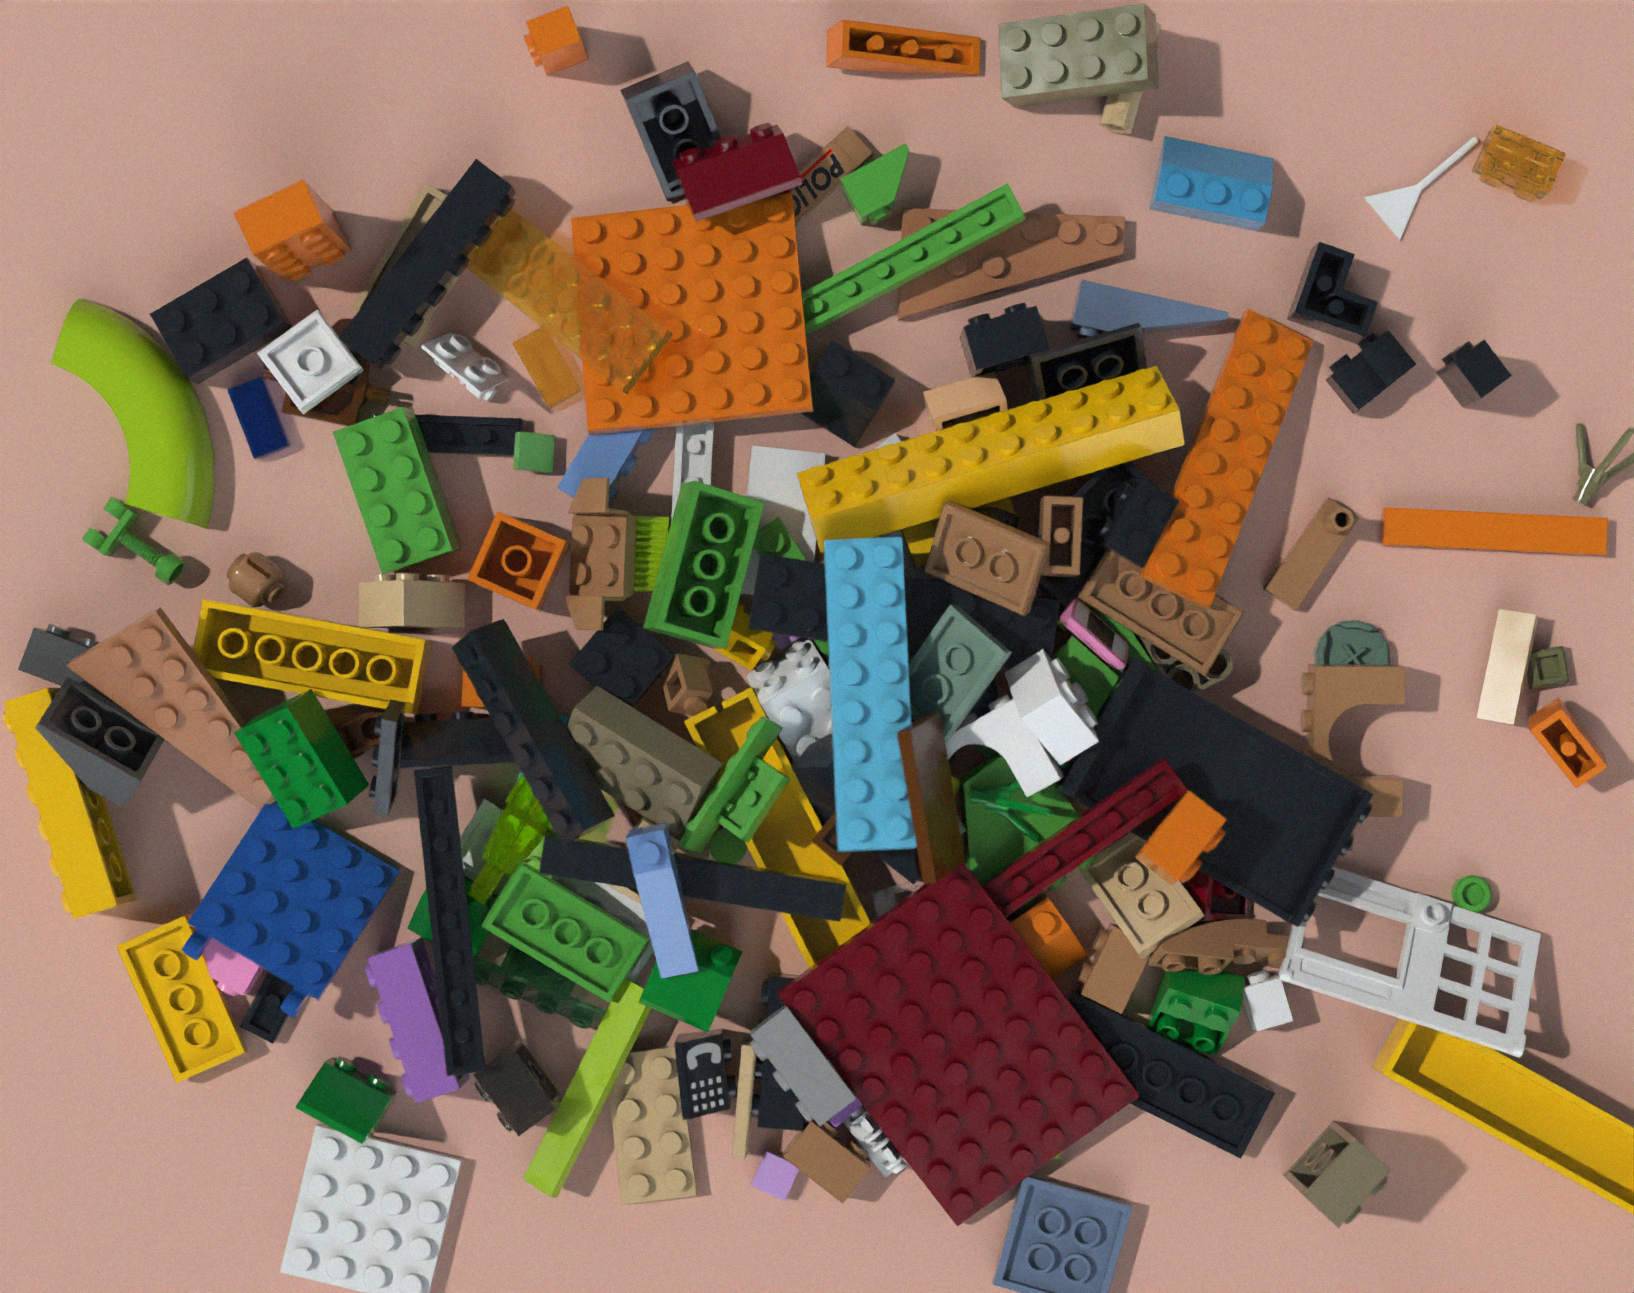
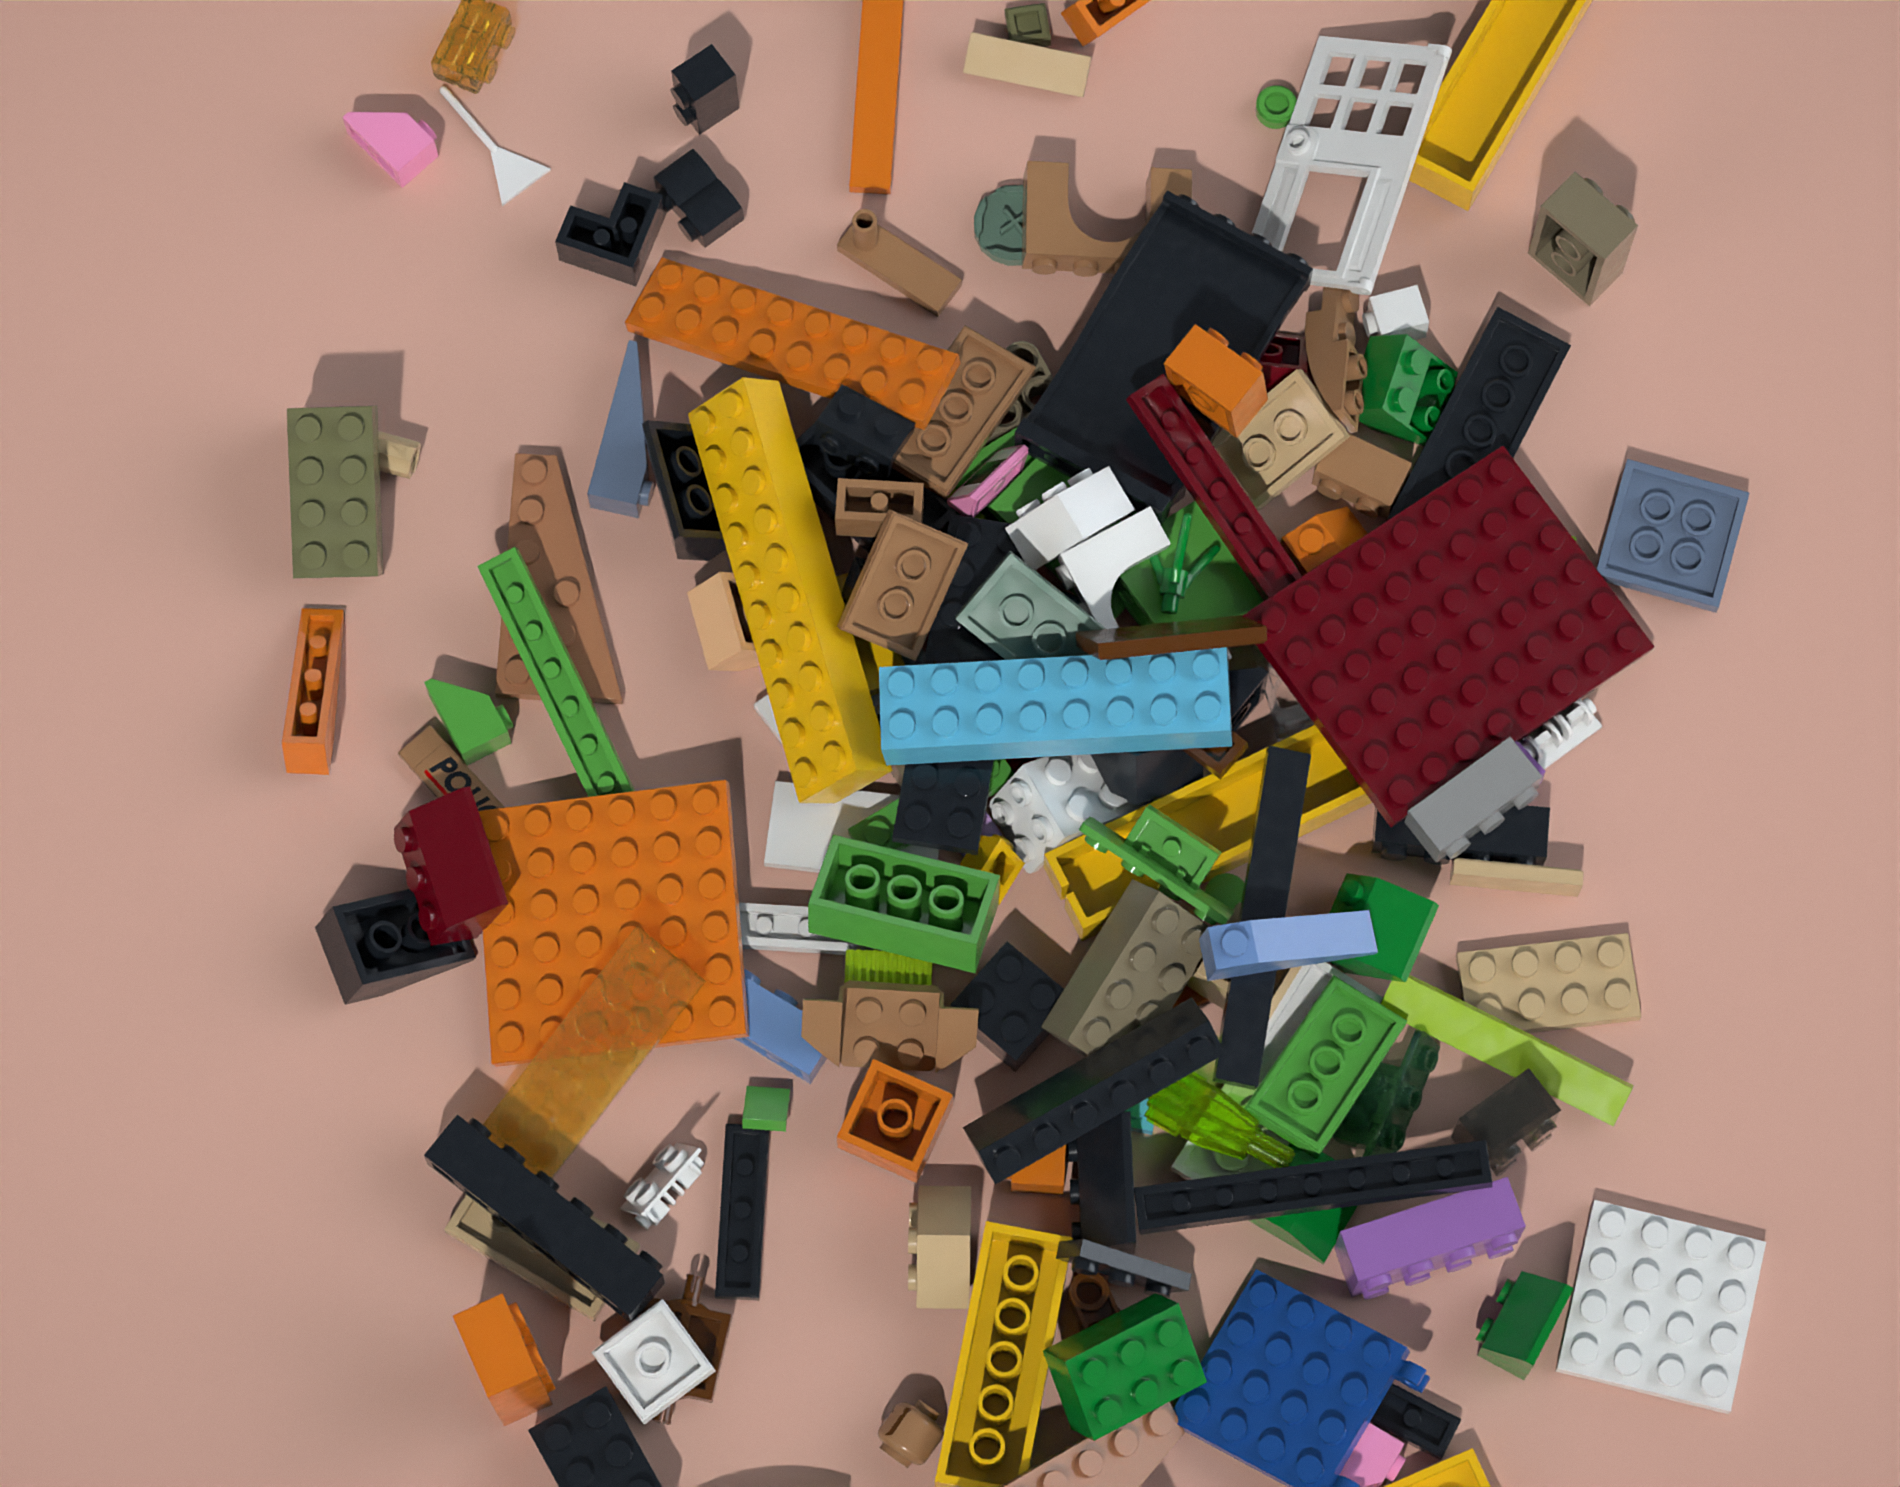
camera: 90 degrees left, 15 degrees down
(259, 418) = (717, 1432): clear blue tile -> none
(397, 490) = (809, 1260): bright green brick -> none
(546, 367) = (665, 1096): clear yellow tile -> none
(555, 41) = (286, 1070): orange brick -> none
(686, 684) = (1041, 929): medium nougat brick -> none
(704, 1073) = (1485, 919): black slope -> none
(774, 1175) = (1602, 847): lavender tile -> none
(828, 1159) = (1582, 785): medium nougat brick -> none
(846, 393) = (706, 748): black slope -> none
(1003, 340) = (657, 588): black brick -> none
(1213, 184) = (481, 359): dark azure slope -> none
(1420, 97) = (393, 142): none -> bright pink slope

